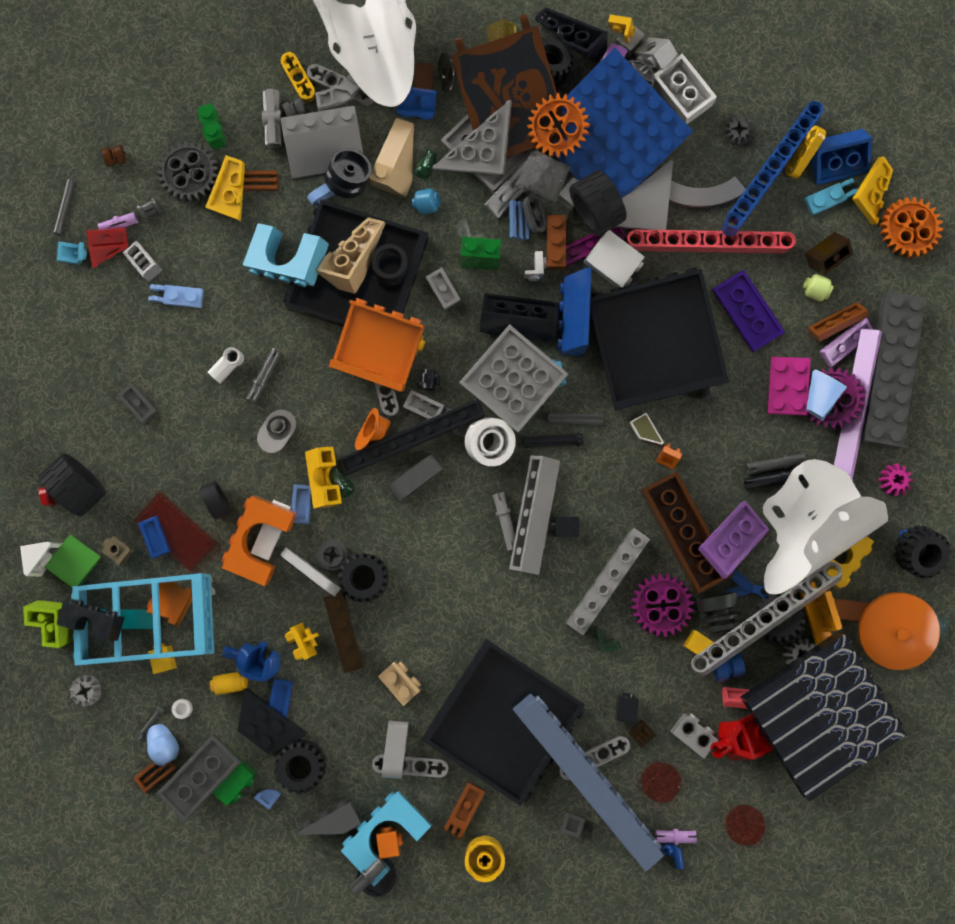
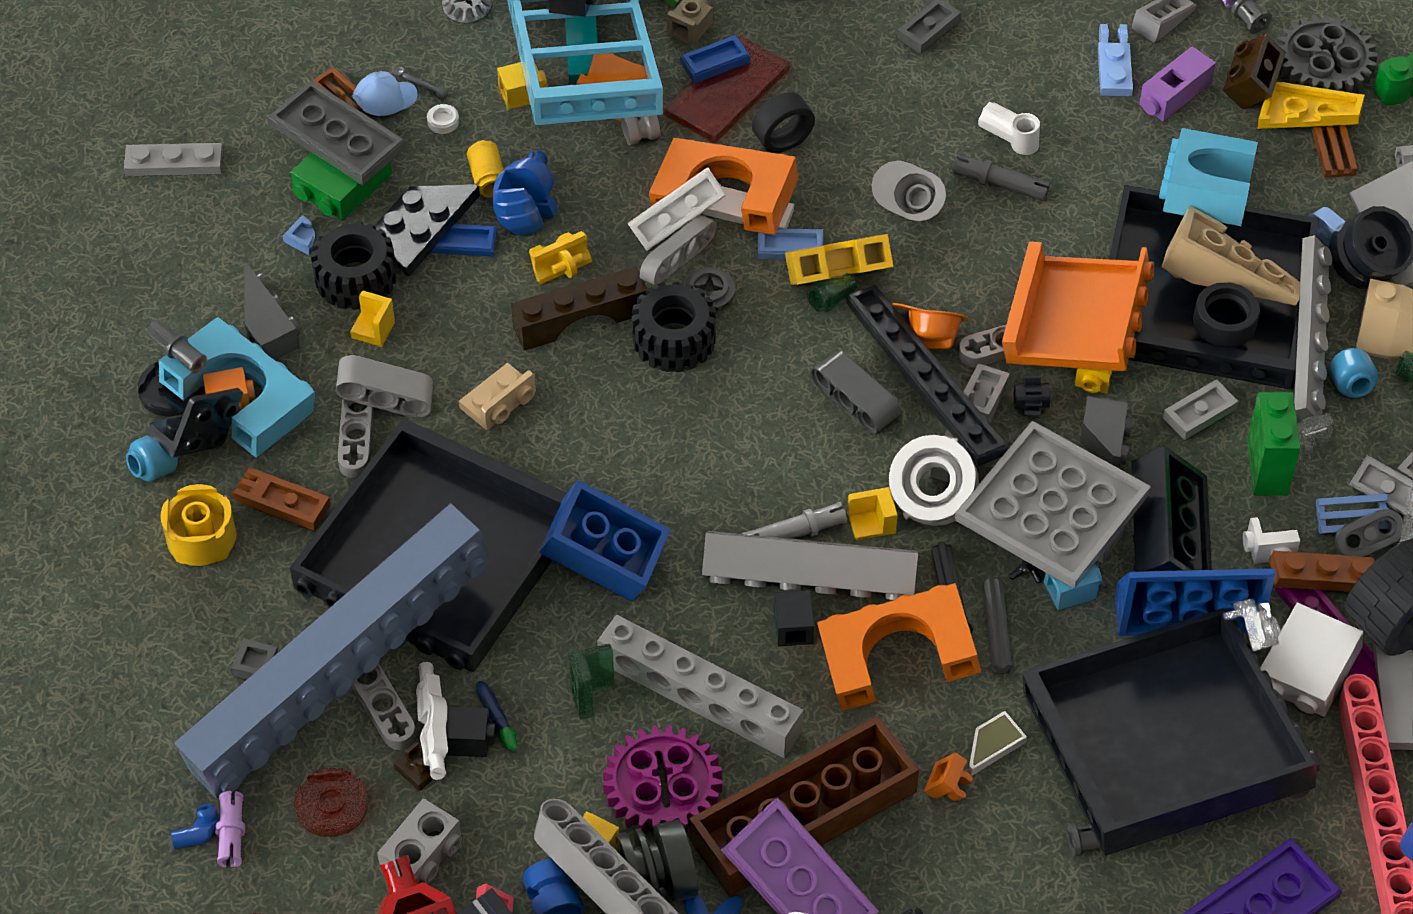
camera: 85 degrees right, 30 degrees down
(199, 879) = (173, 159): none -> light grey plate
(200, 215) = (1254, 71): none -> dark brown brick
(202, 262) = (1177, 83): none -> medium lavender brick
(278, 569) = (677, 209): none -> white tile
(341, 755) = (374, 320): none -> yellow panel
(391, 215) = (1312, 328): none -> light grey plate
(417, 864) = (201, 426): none -> black bracket
(430, 886) = (149, 459): none -> dark azure head
(456, 343) = (1104, 429): none -> dark grey slope
(501, 477) = (872, 513): none -> yellow panel
(519, 627) = (605, 540): none -> blue brick
(578, 449) = (931, 613): none -> orange arch
(601, 282) = (1260, 623): none -> clear bracket
(613, 691) = (506, 733): none -> dark blue piece
(615, 727) = (432, 713): none -> white piece

